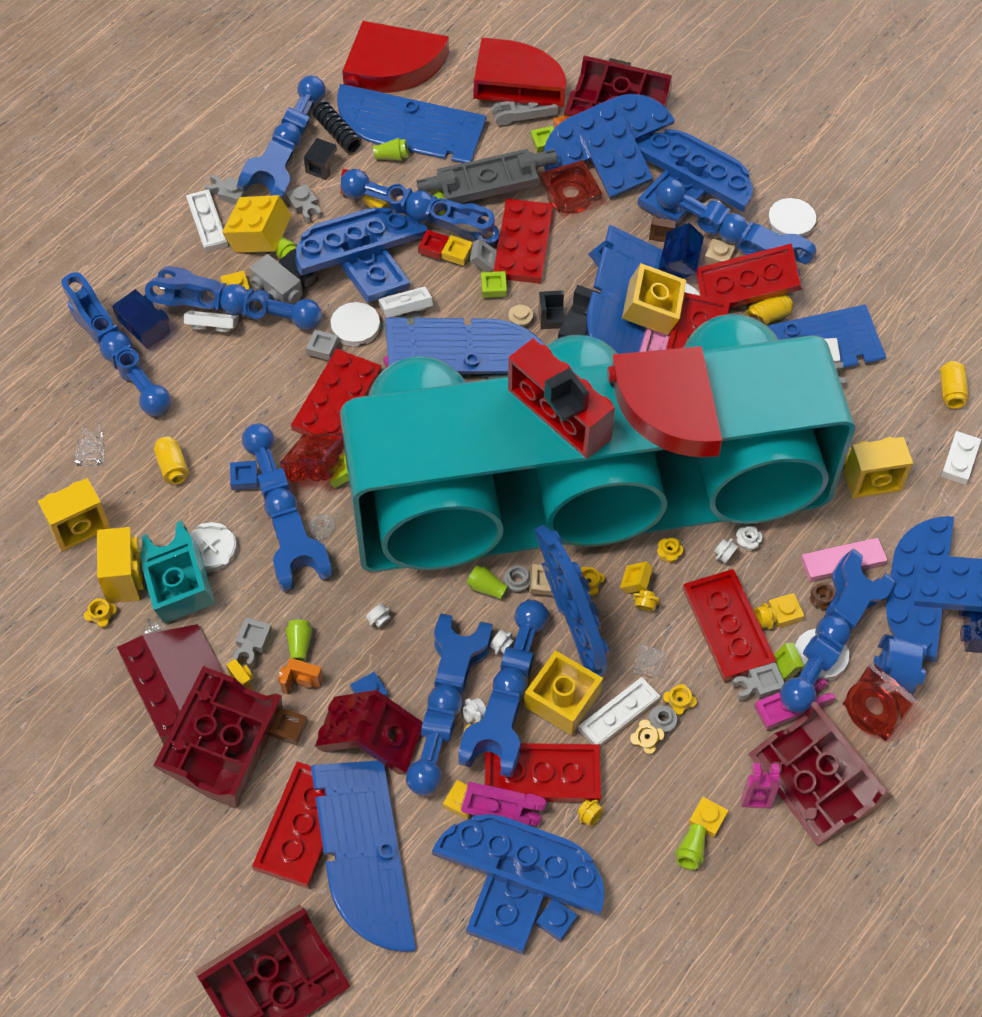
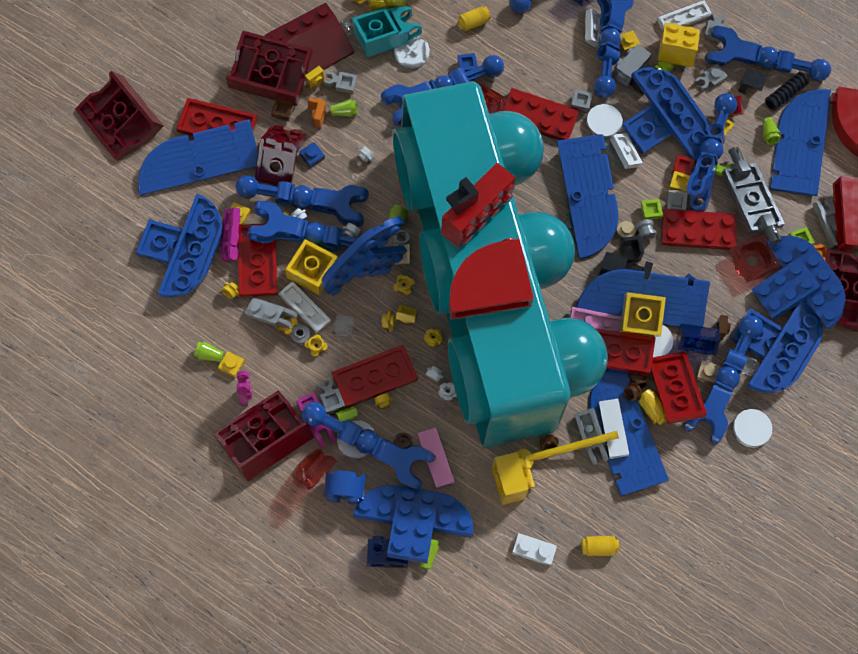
camera: 80 degrees right, 10 degrees up
(524, 292) = (646, 229): none -> light grey wheel
(556, 920) = (157, 273): blue plate -> none
(632, 756) = (269, 313): none -> light grey hinge
(787, 610) = (390, 416): yellow plate -> none

